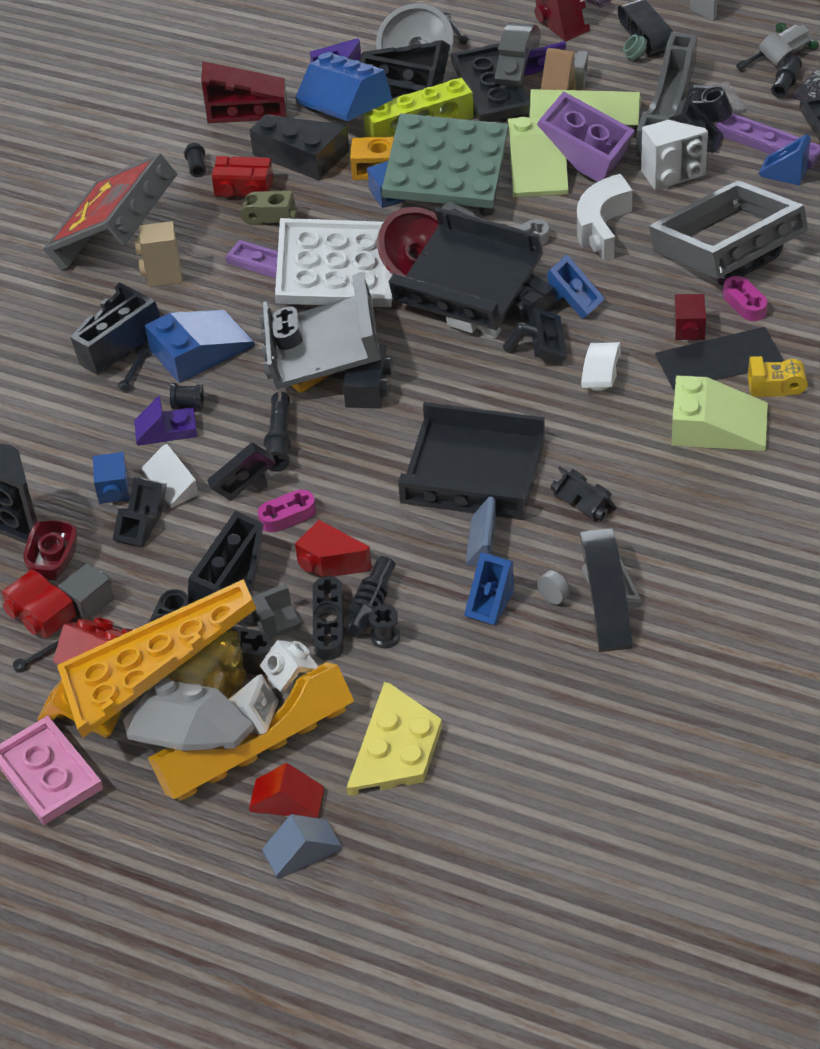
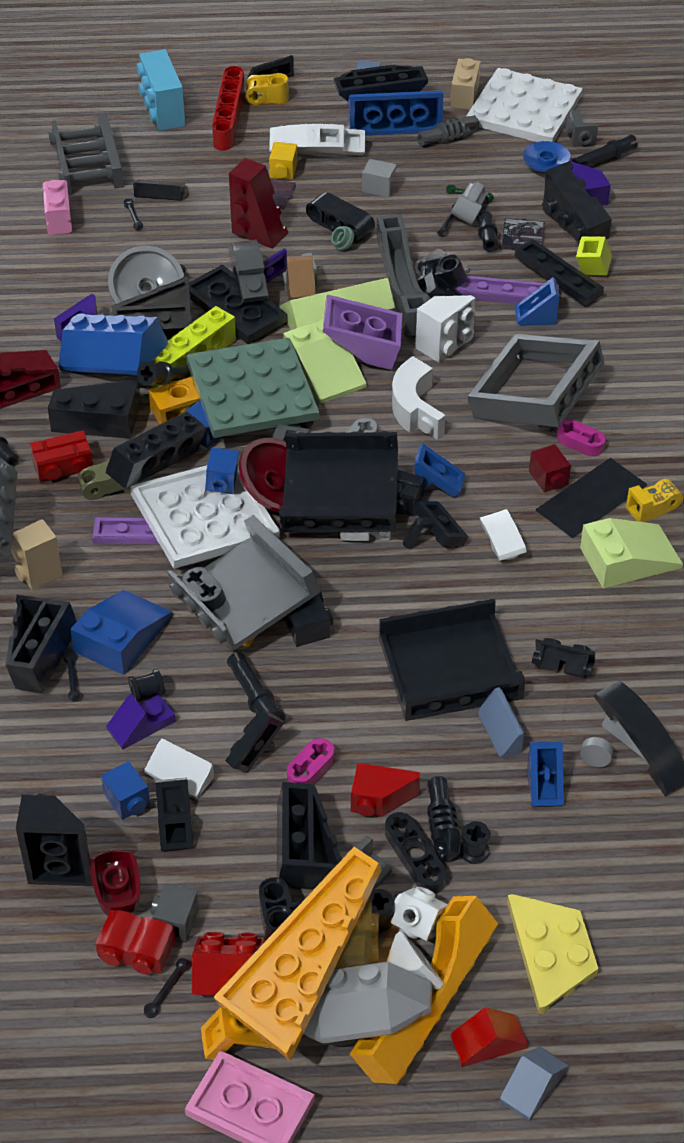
camera: 30 degrees left, 0 degrees up
(320, 192) = (155, 449): none -> black brick
(364, 227) = (222, 470): none -> blue brick
(367, 124) = (161, 373): none -> black pin

